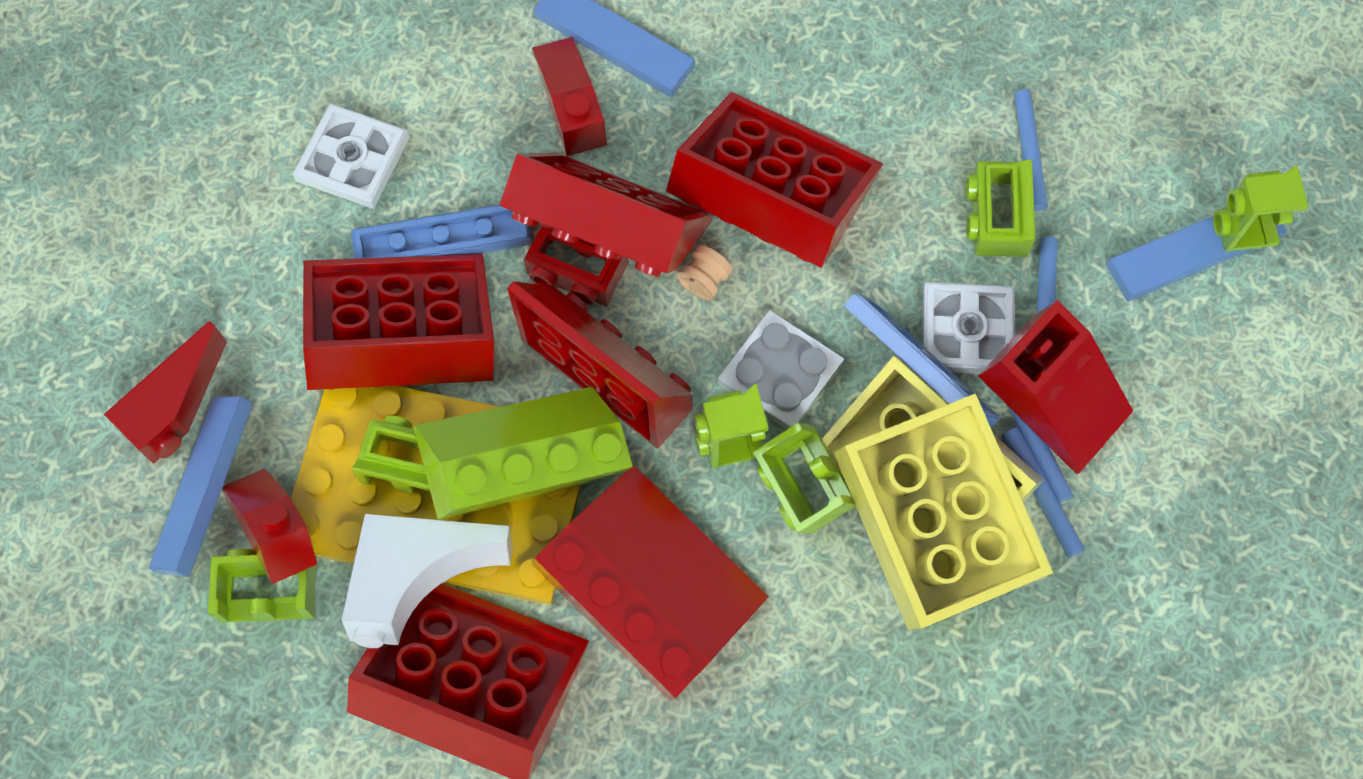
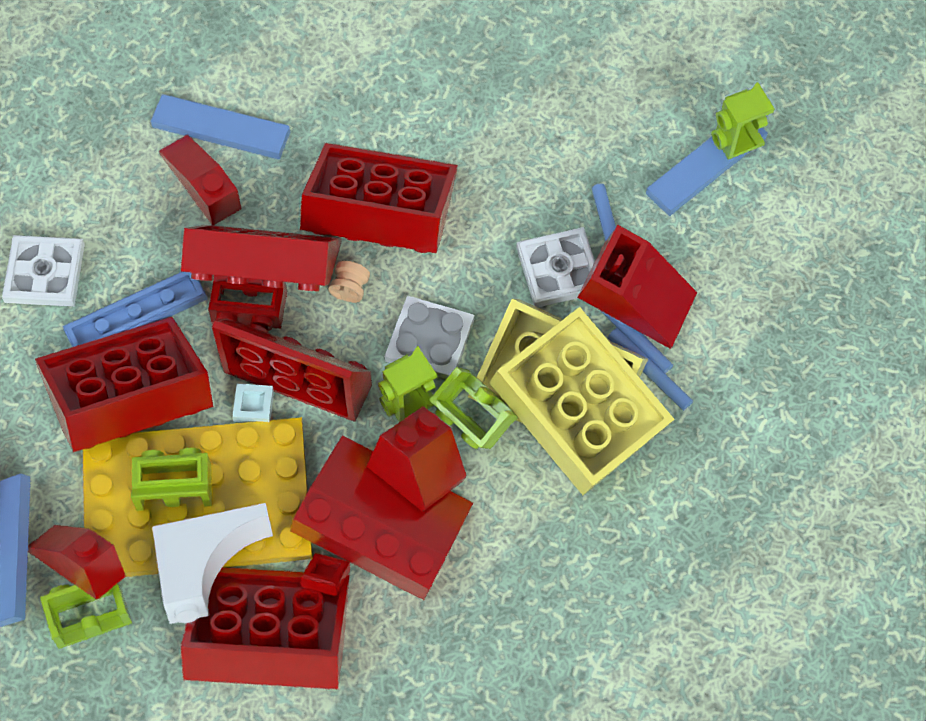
camera: 20 degrees left, 5 degrees down
(520, 451) = (256, 447): lime slope -> none
(540, 382) = (253, 403): none -> light aqua plate
(559, 632) = (325, 574): none -> red tile
(716, 524) = (419, 458): none -> red slope
(913, 352) = (521, 292): tile -> none
(1001, 241) = (562, 197): lime window -> none
(1030, 145) = (564, 125): medium blue bar -> none

